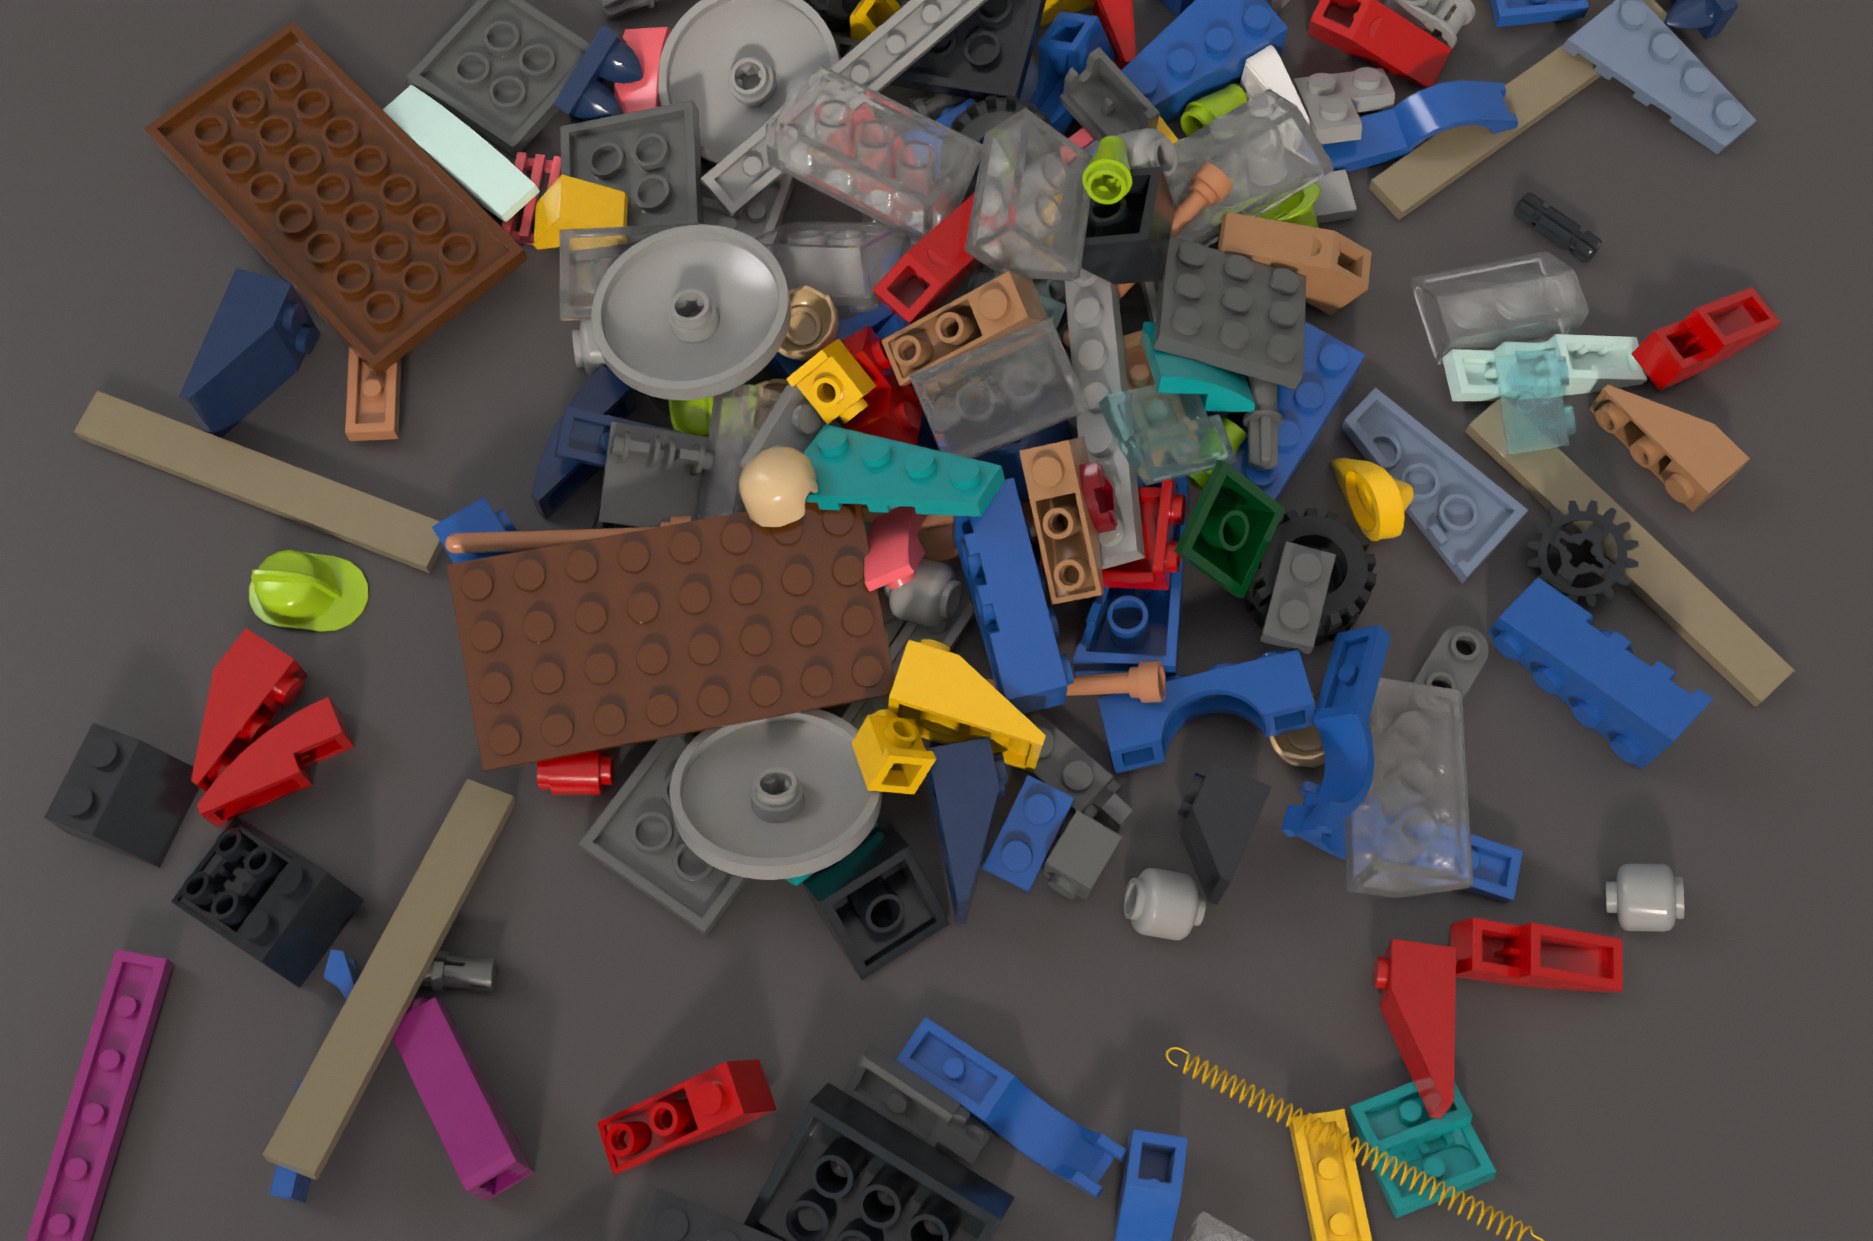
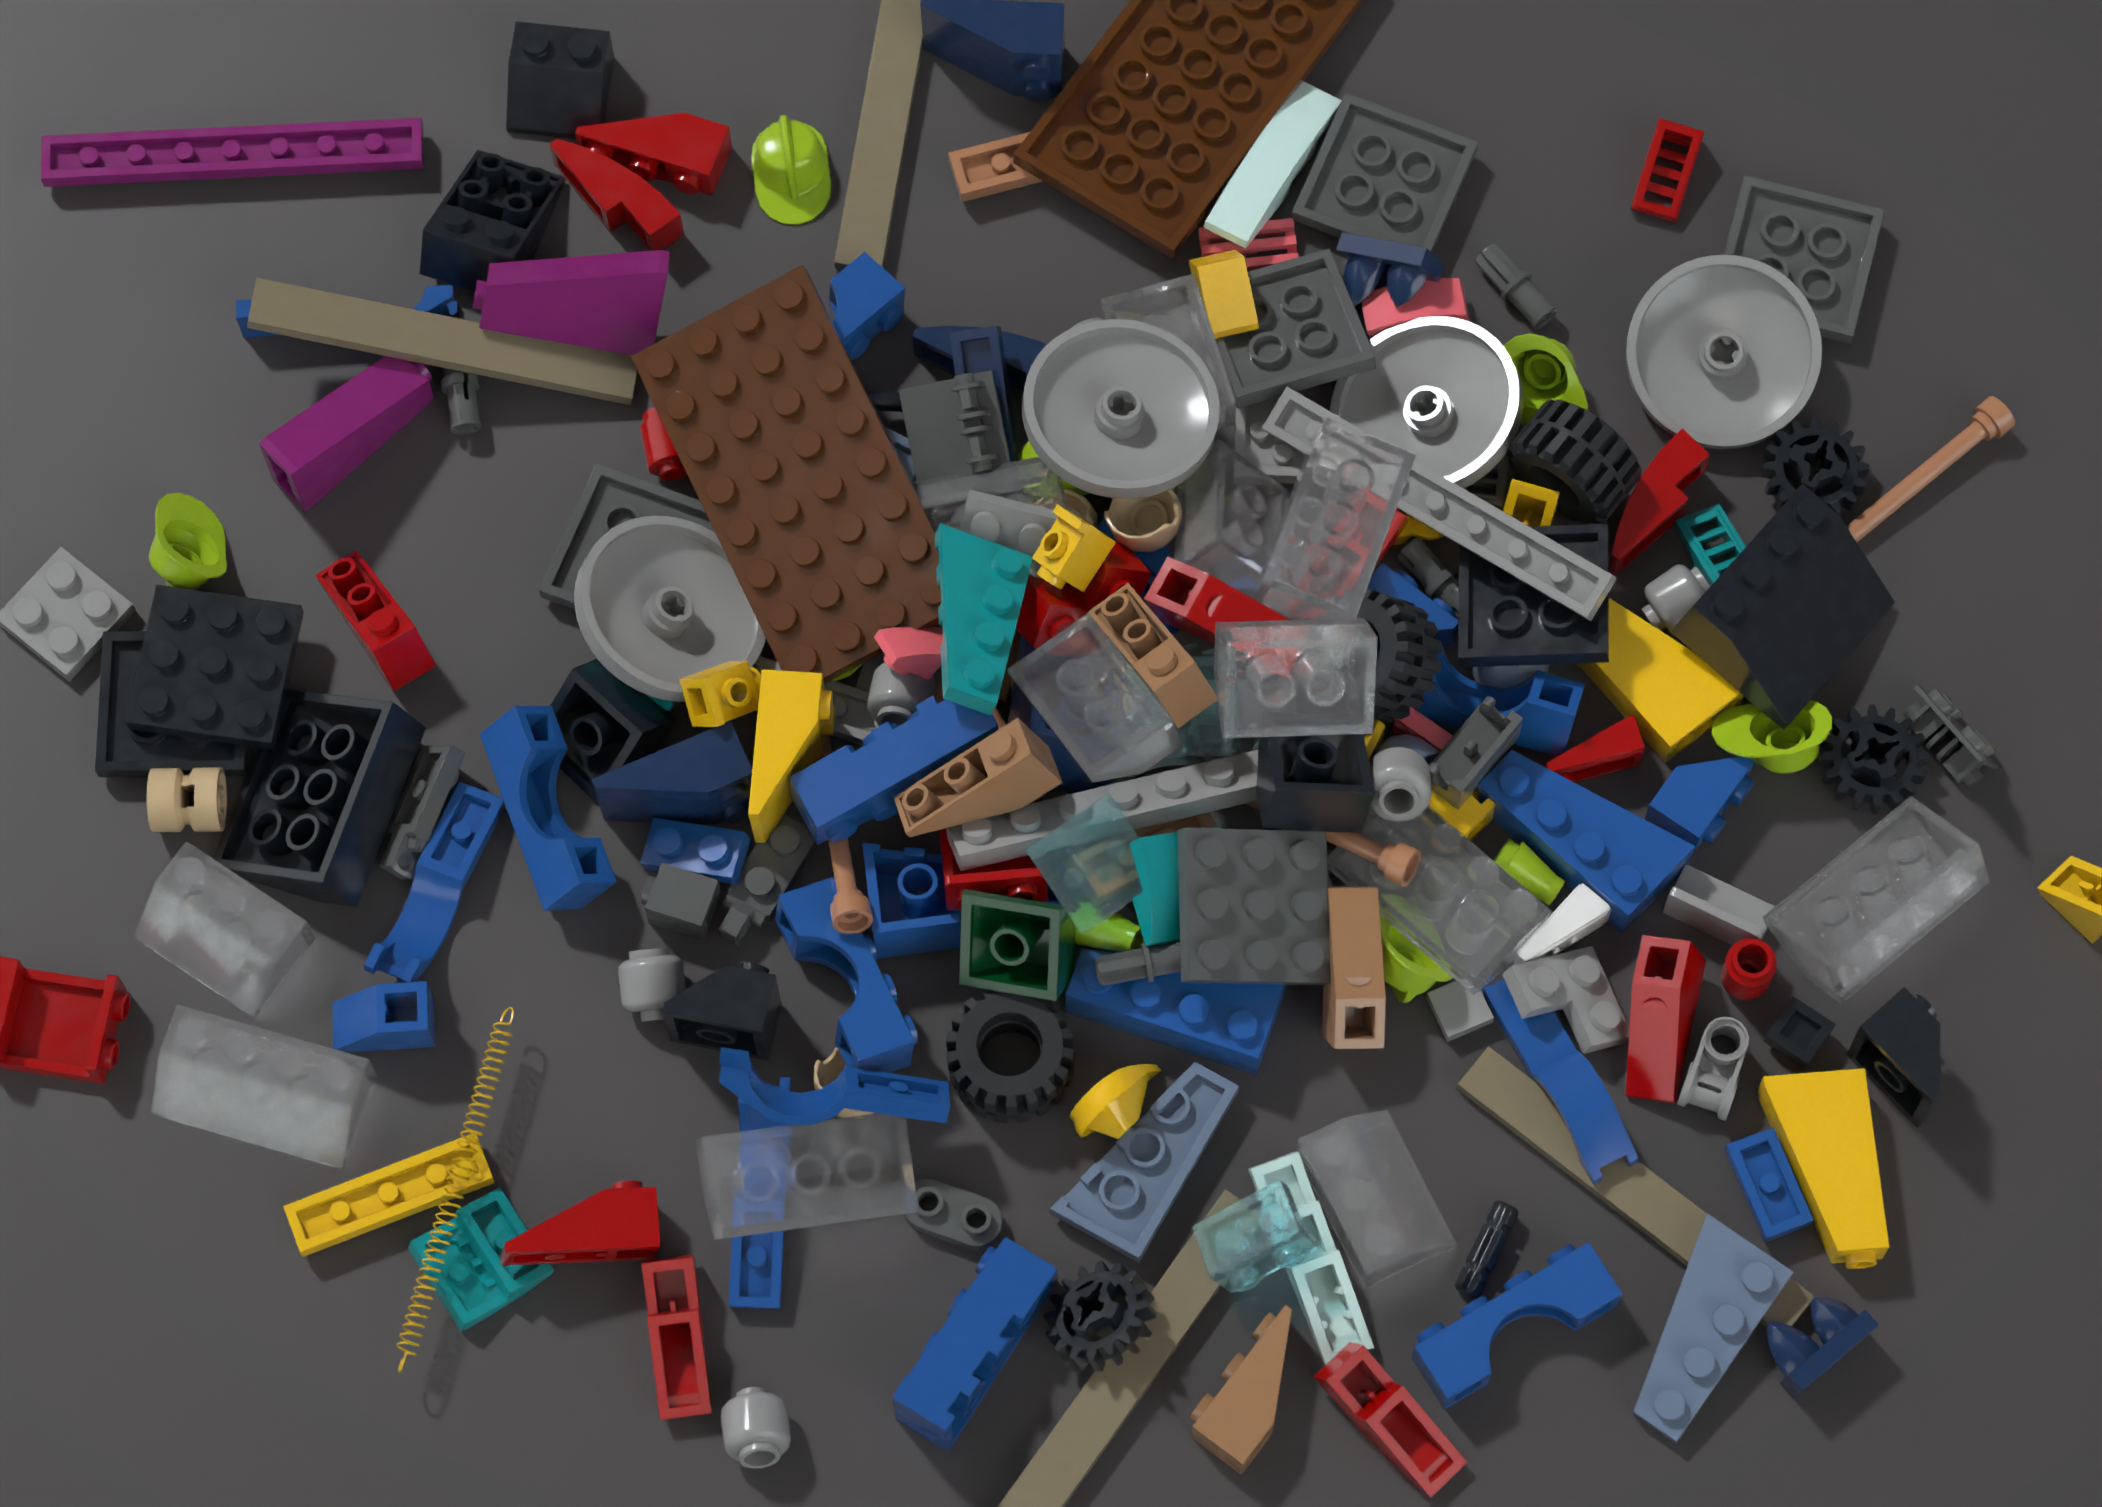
camera: 80 degrees right, 0 degrees up
(394, 816) = (578, 300): none -> magenta slope
(527, 540) = (875, 372): nougat piece -> none
(777, 486) = (944, 520): tan hair -> none
(1014, 968) = (525, 758): none -> blue arch
(1099, 496) = (1000, 807): dark red tile -> none
(1108, 172) = (1352, 742): lime cone -> none
(1297, 597) = (967, 1030): dark grey plate -> none
(1656, 265) = (1570, 1290): none -> blue arch

